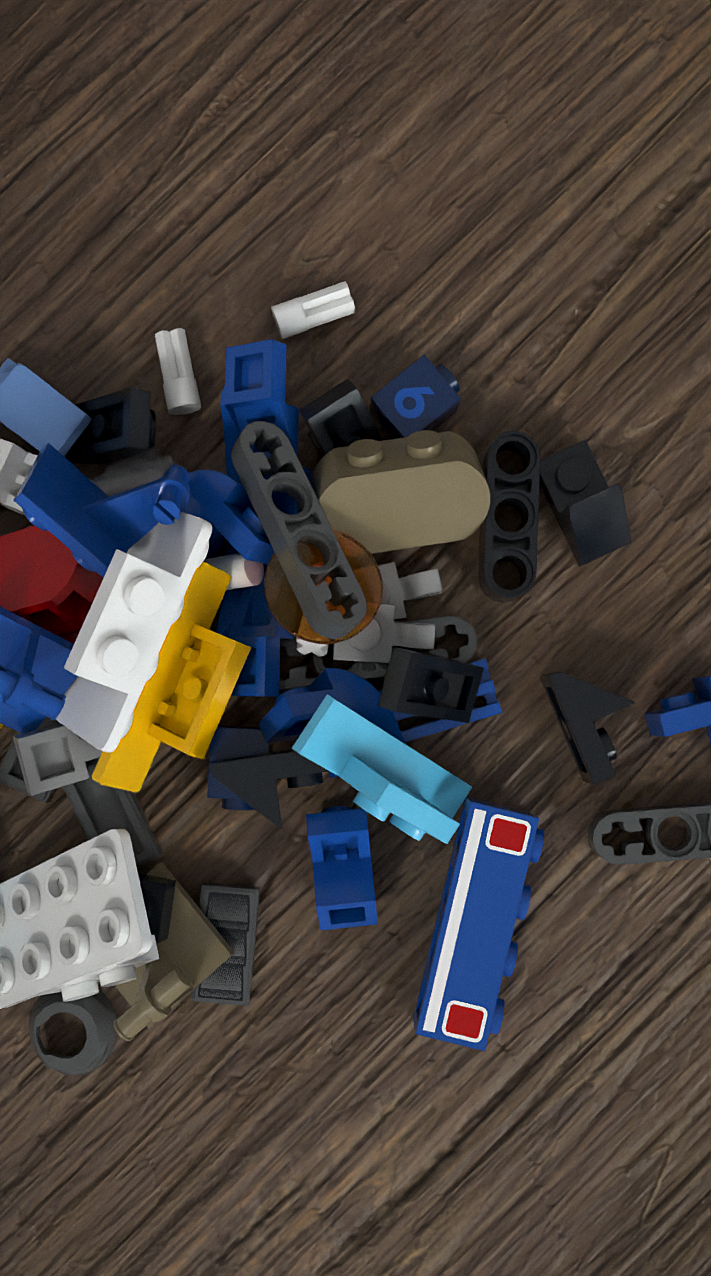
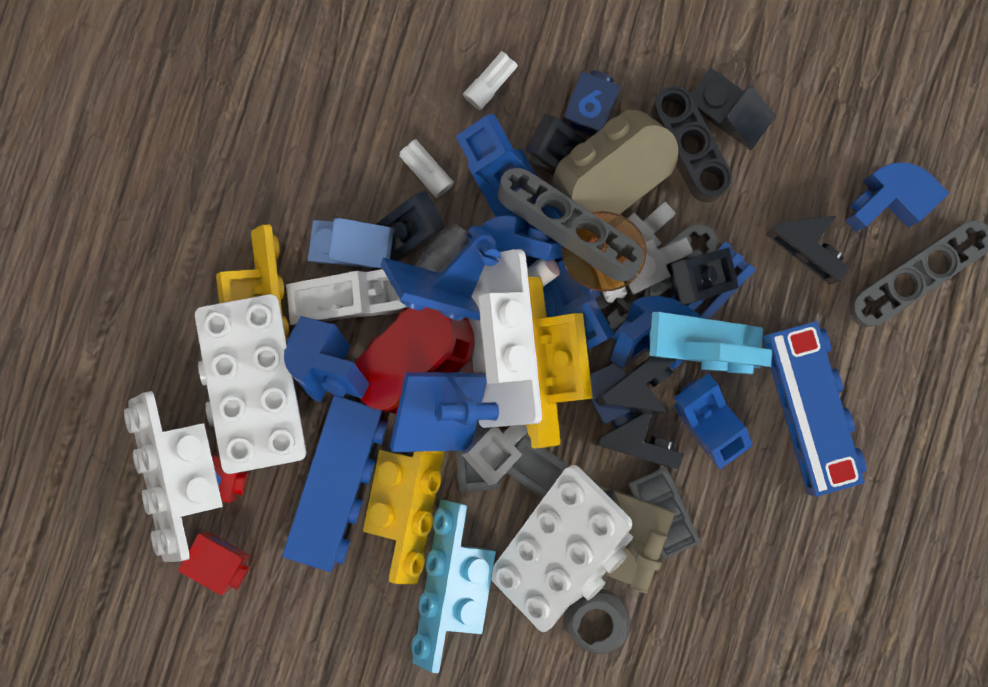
camera: 30 degrees left, 0 degrees up
(229, 837) = (630, 440): none -> black slope

